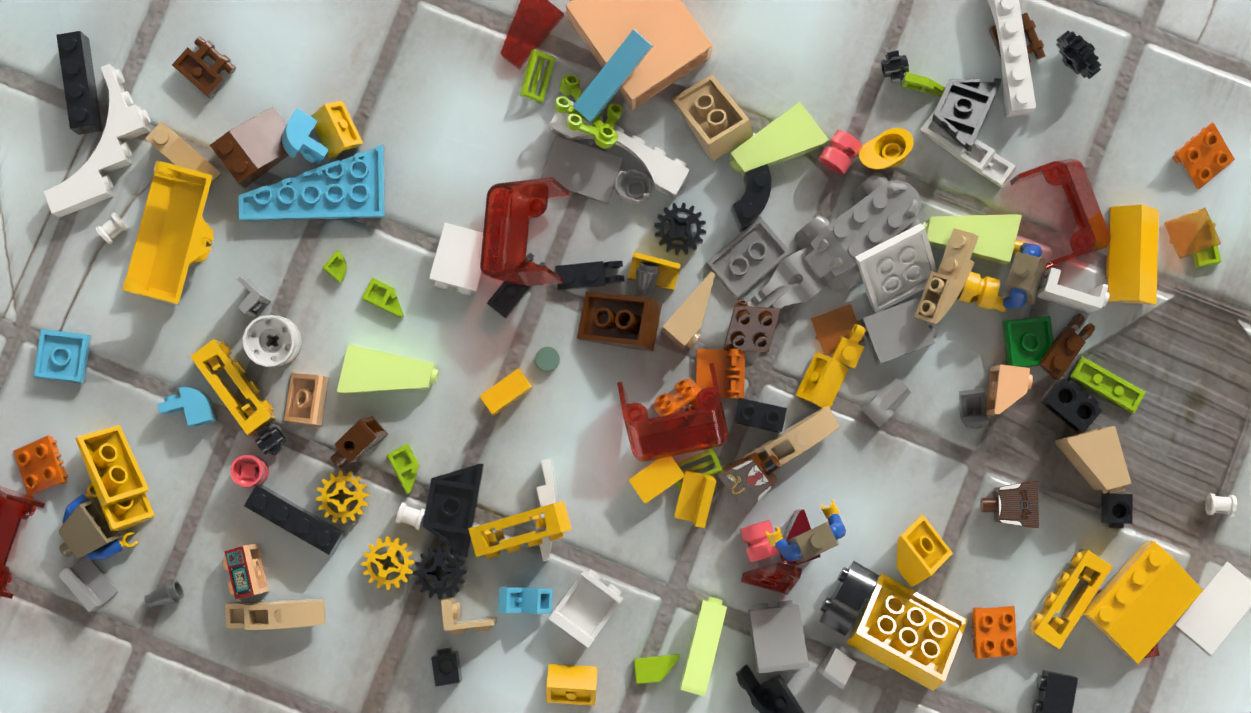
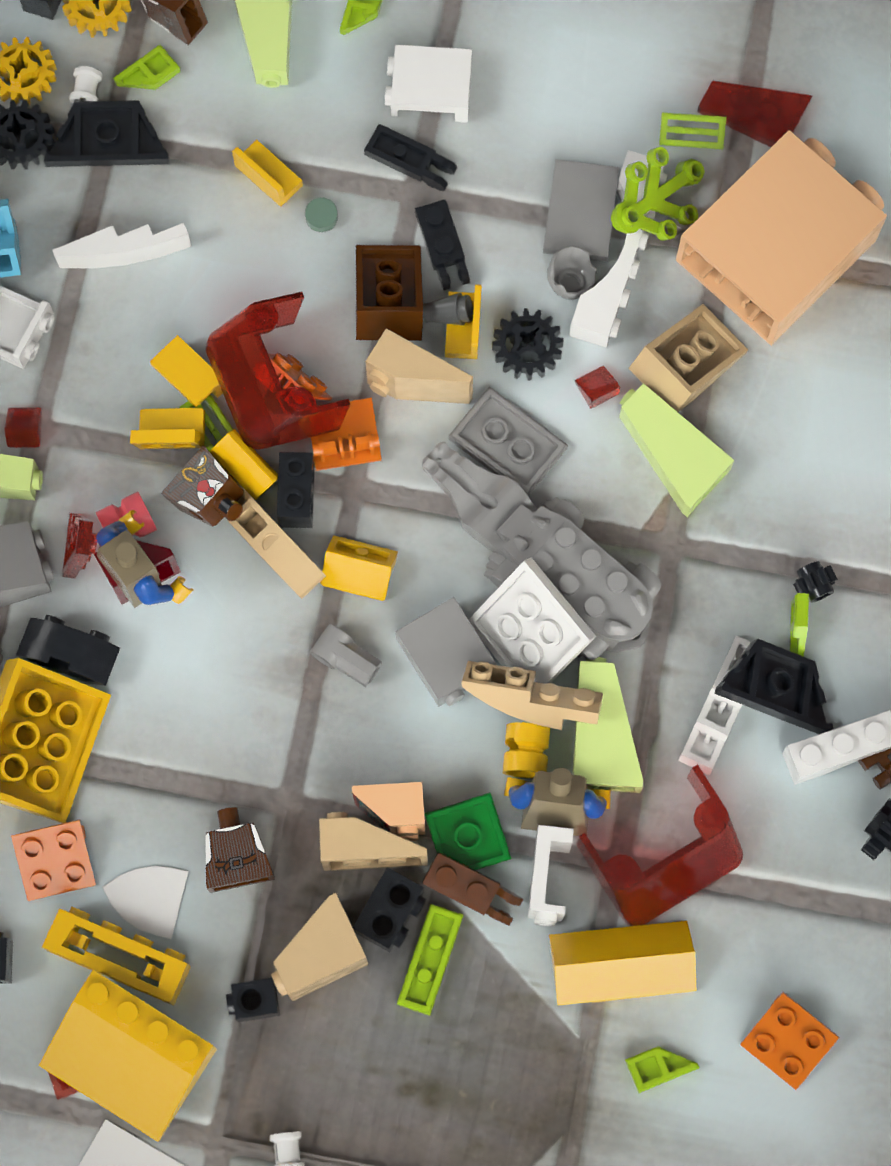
camera: 80 degrees right, 10 degrees down
(507, 226) = (478, 127): clear red windscreen -> none
(555, 521) = (107, 239): yellow brick -> none
(613, 75) = (707, 203): medium azure tile -> none
(669, 604) = (23, 427): none -> clear red slope
(719, 186) = (597, 386): none -> clear red slope
(737, 447) = (244, 464): none -> yellow panel
(751, 327) = (411, 455): reddish brown hinge -> none
(755, 197) = (590, 429): black brick -> none
(833, 325) = (434, 576): clear orange piece -> none
(840, 152) = (665, 530): coral wheel -> none
(848, 350) = (408, 594): yellow plate -> none
(887, 149) = (693, 590): yellow piece -> none
(920, 551) = (150, 736): yellow slope -> none
(973, 408) = (362, 770): dark grey bracket -> none
(1028, 417) = (355, 844): none -> tan slope
(1029, 570) = (149, 898): none -> white sticker
(1192, 233) = (672, 1042): clear orange piece -> none

